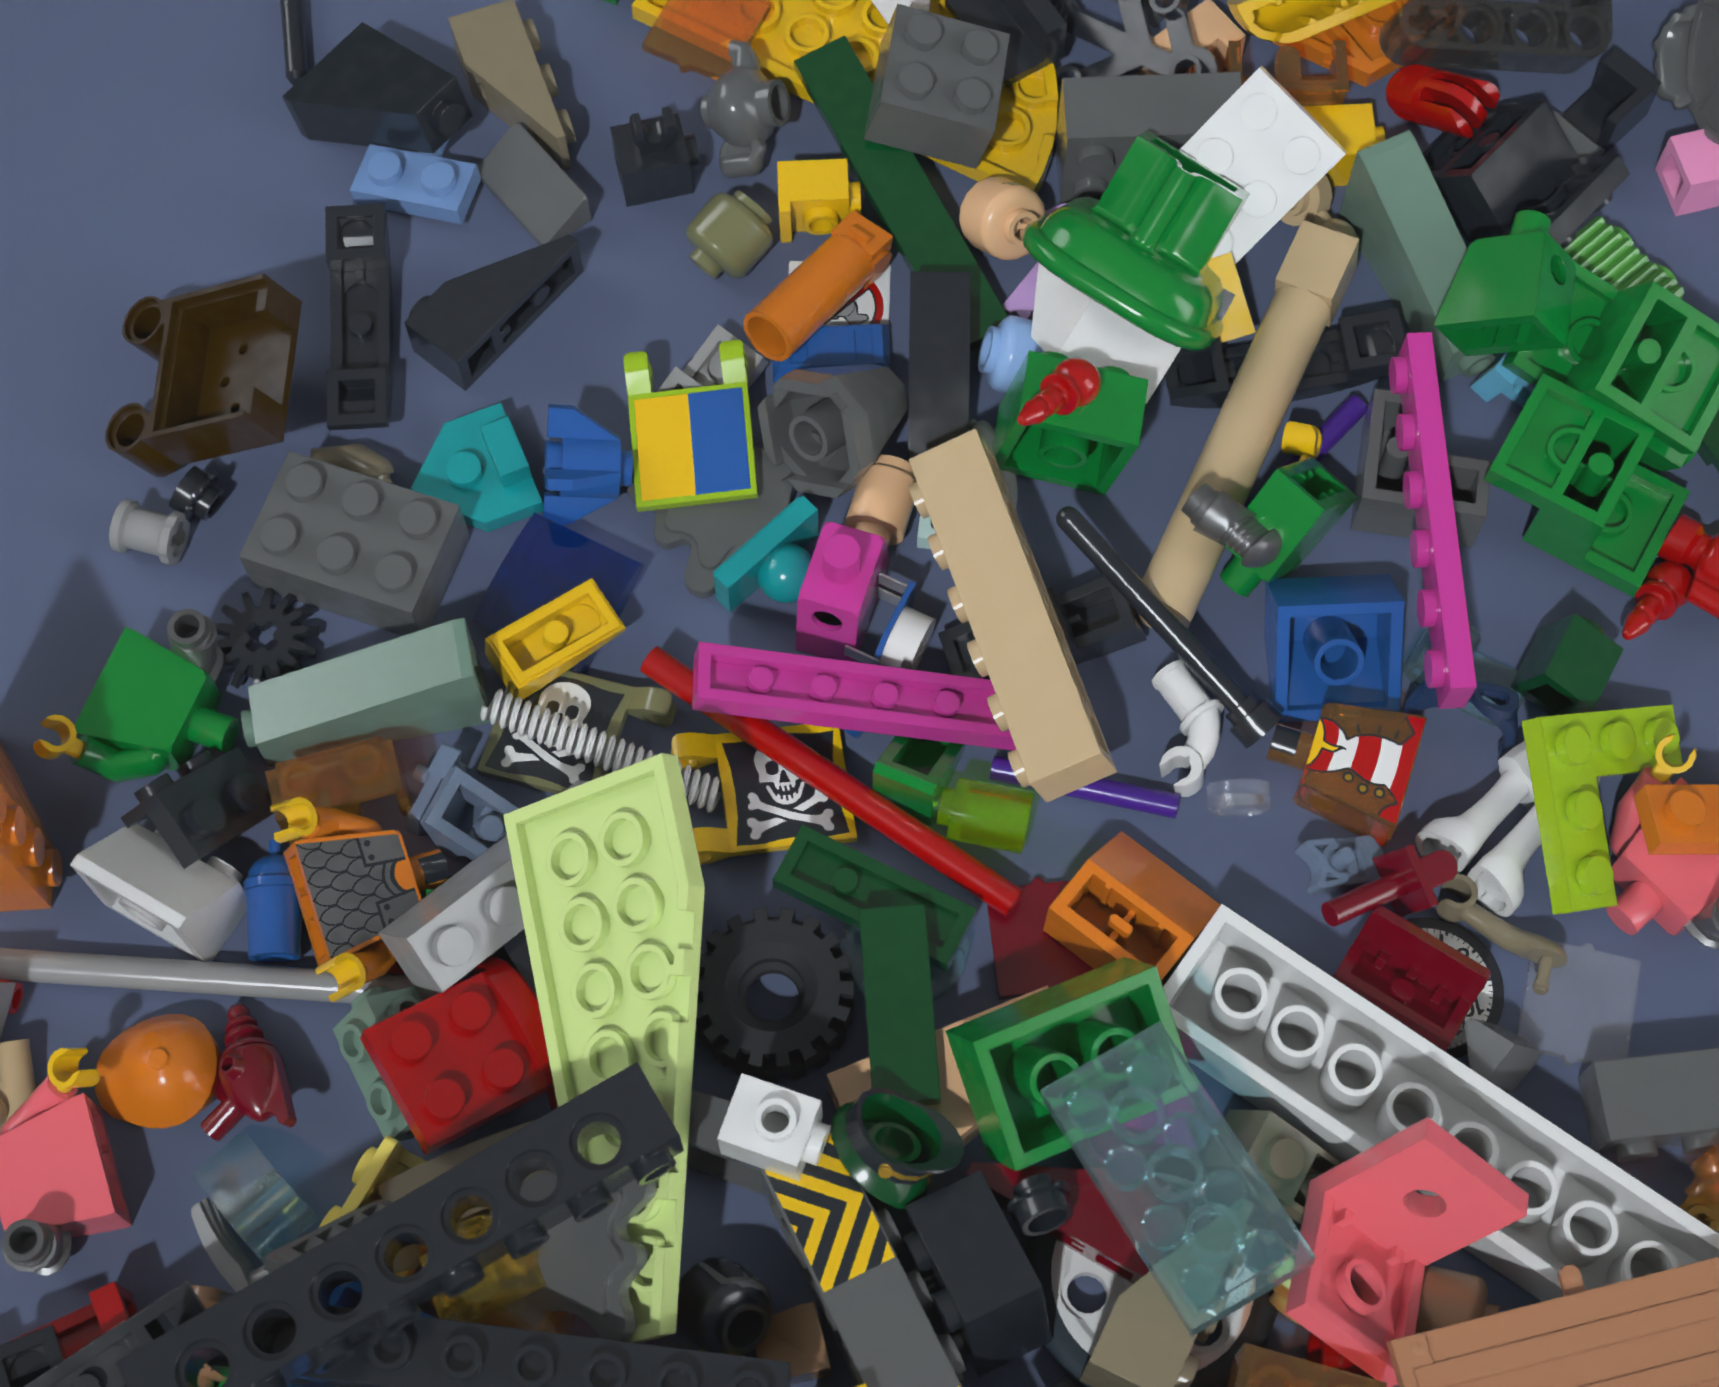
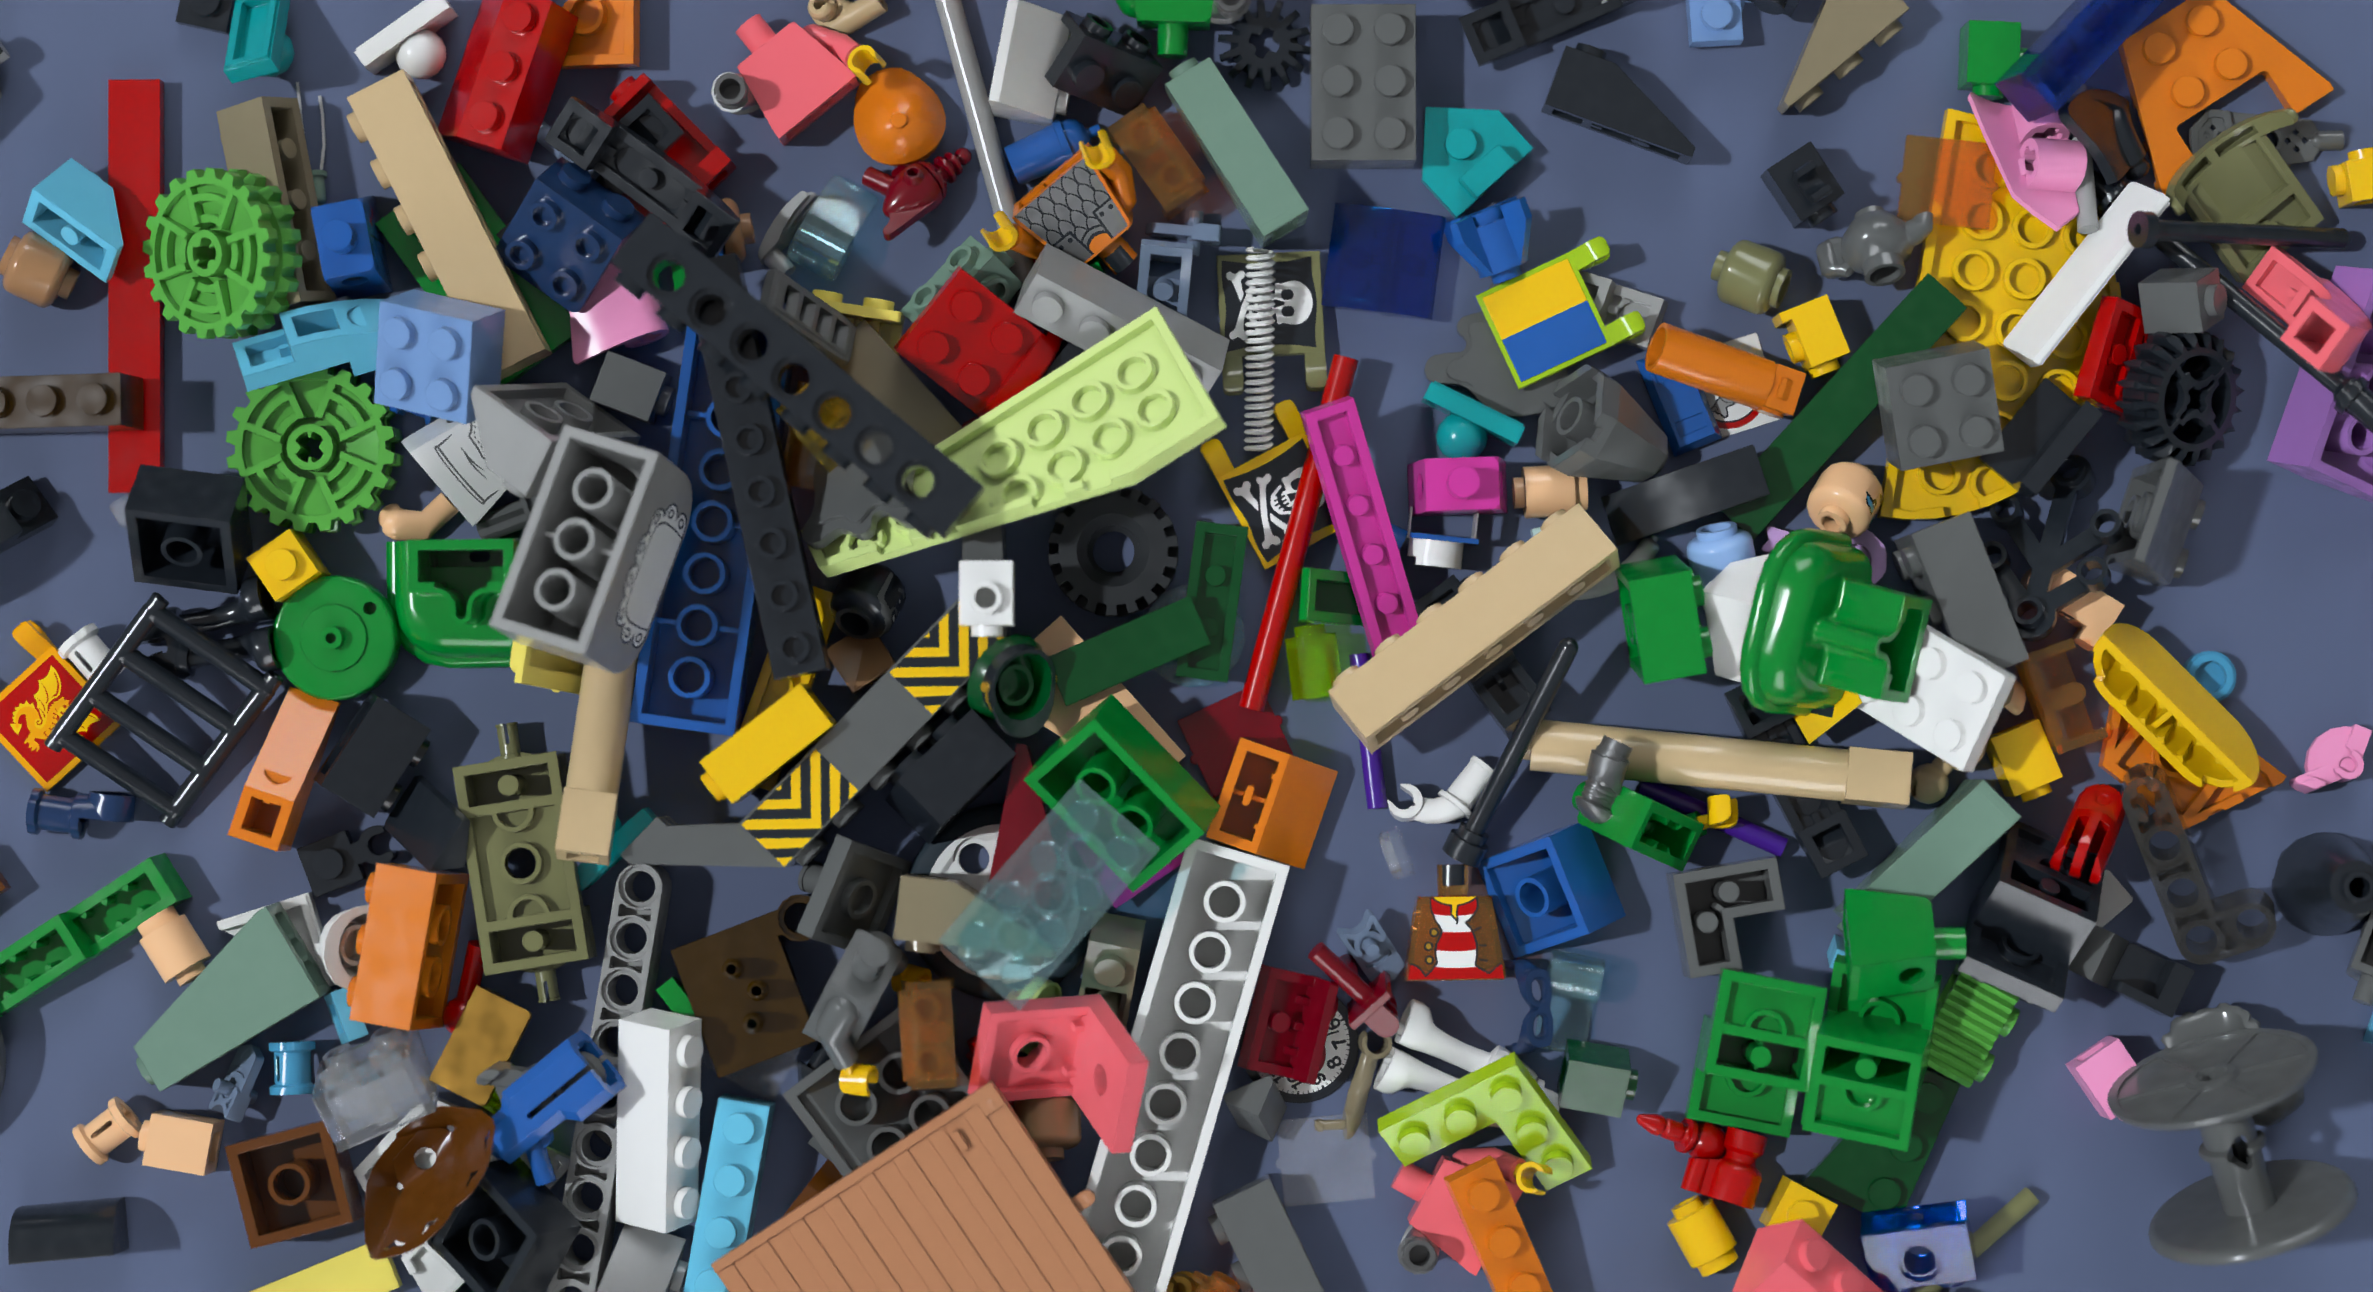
camera: 70 degrees right, 20 degrees up
(357, 459) = (1441, 54): dark tan arm -> none
(534, 187) = (1742, 93): dark grey slope -> none
(552, 639) = (1338, 276): yellow slope -> none
(1040, 1204) = (1007, 805): black plate -> none
(1070, 386) = (1670, 614): red bar -> none
(1435, 542) = (1684, 925): dark pink plate -> none

